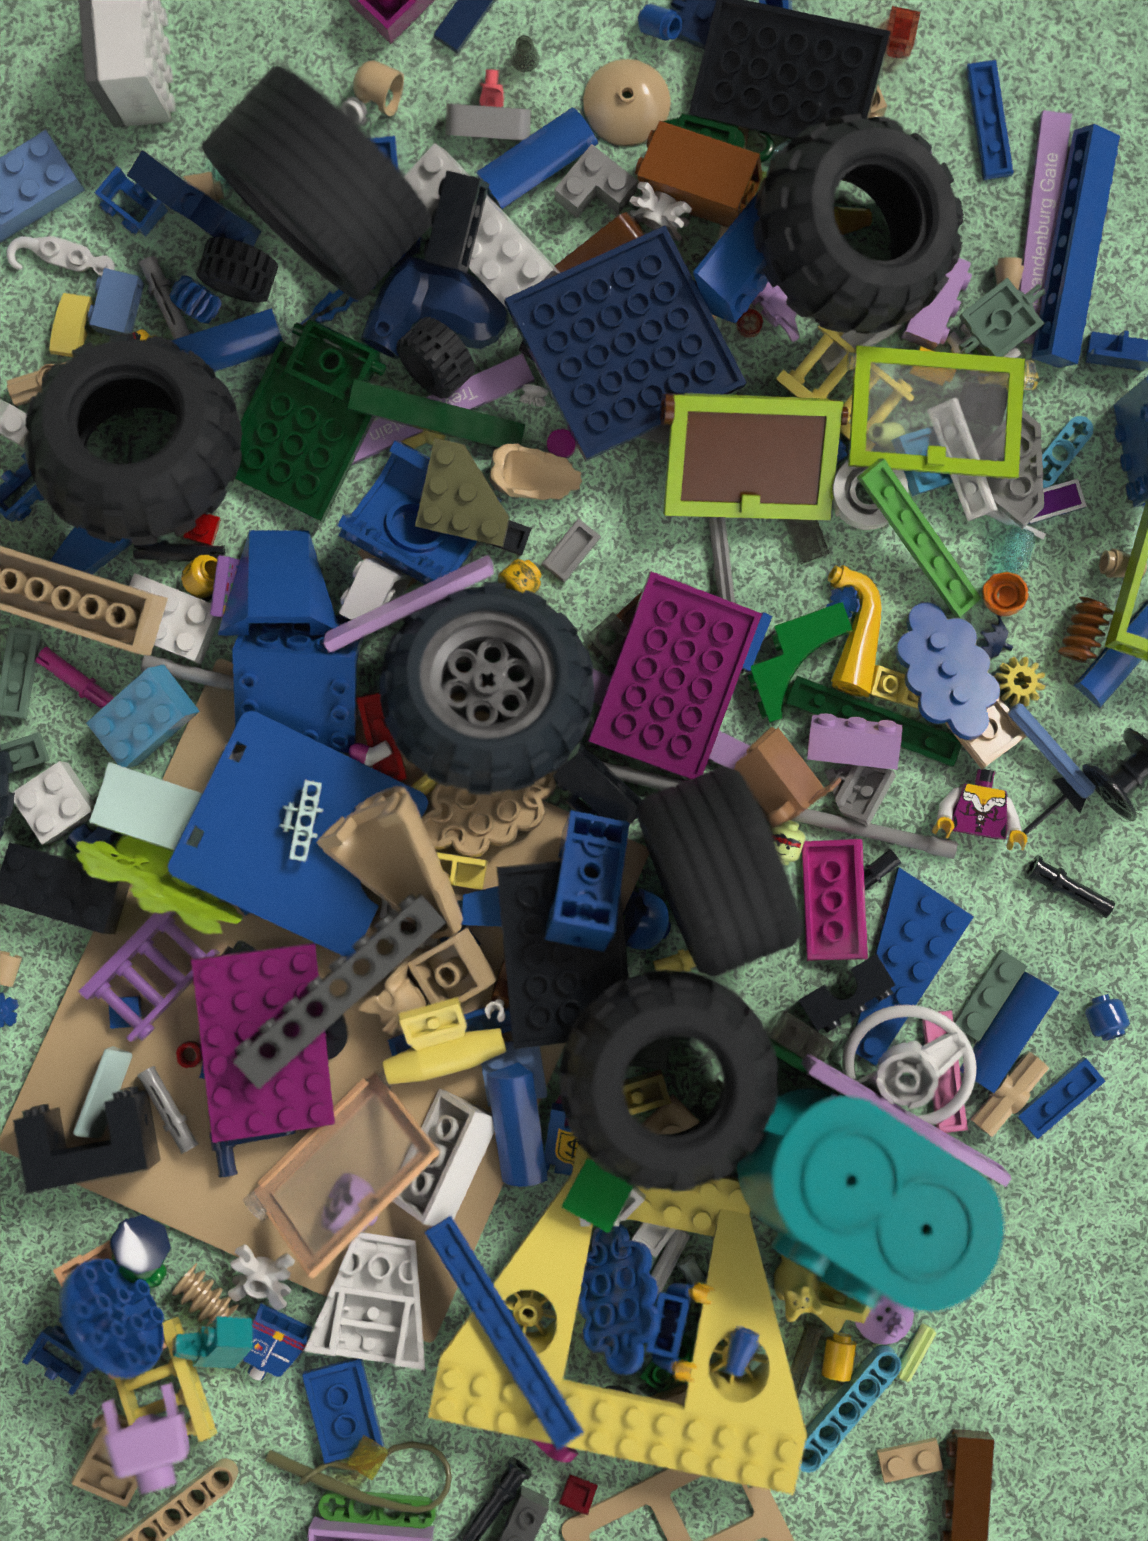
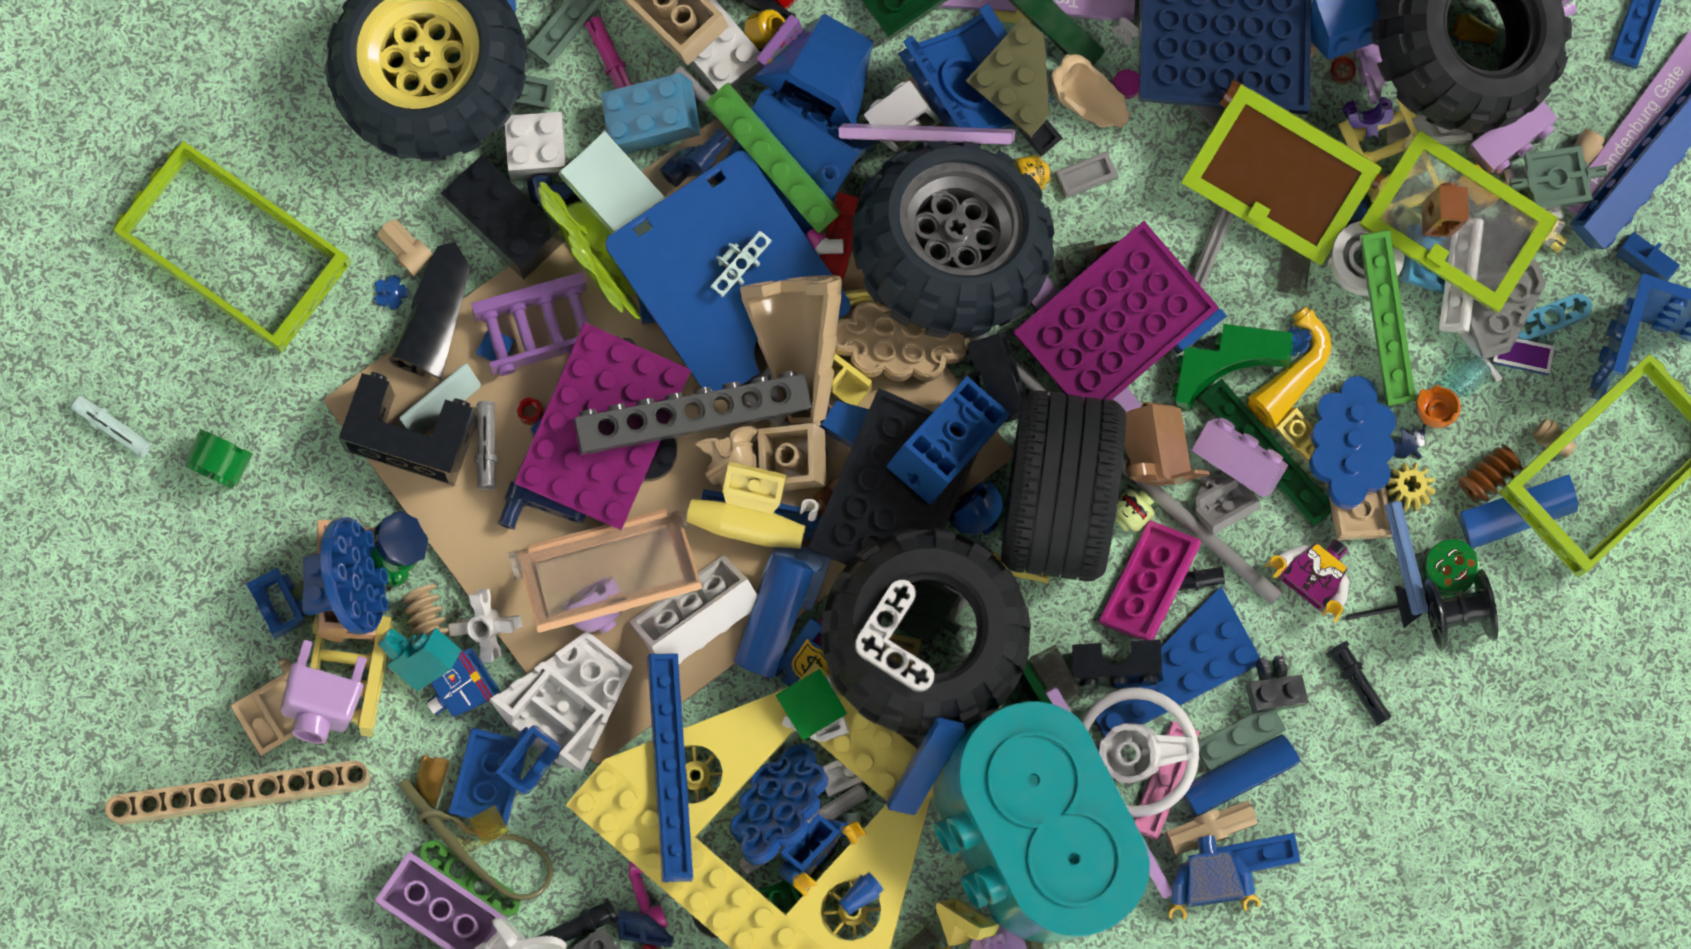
camera: 25 degrees right, 10 degrees down
(49, 1007) = (434, 314): none -> black panel
(209, 743) = (693, 160): none -> dark blue beam
(278, 702) = (773, 157): none -> bright green plate
(291, 1437) = (431, 778): none -> pearl gold brick
(365, 1405) = (510, 759): none -> blue window
(558, 1472) = (642, 929): none -> dark blue tile
(638, 1125) = (882, 636): none -> white beam
(736, 1203) = (925, 766): none -> blue tile
(797, 1288) = (936, 883): light yellow animal -> none
(803, 357) = (1370, 119): none -> piece
(925, 411) = (1445, 210): none -> dark orange brick
(1003, 938) = (1278, 692): none -> black hinge
(1039, 1146) = (1211, 879): none -> blue torso
(1094, 736) = (1451, 566): none -> green head
(1107, 1017) = (1331, 809): blue head -> none

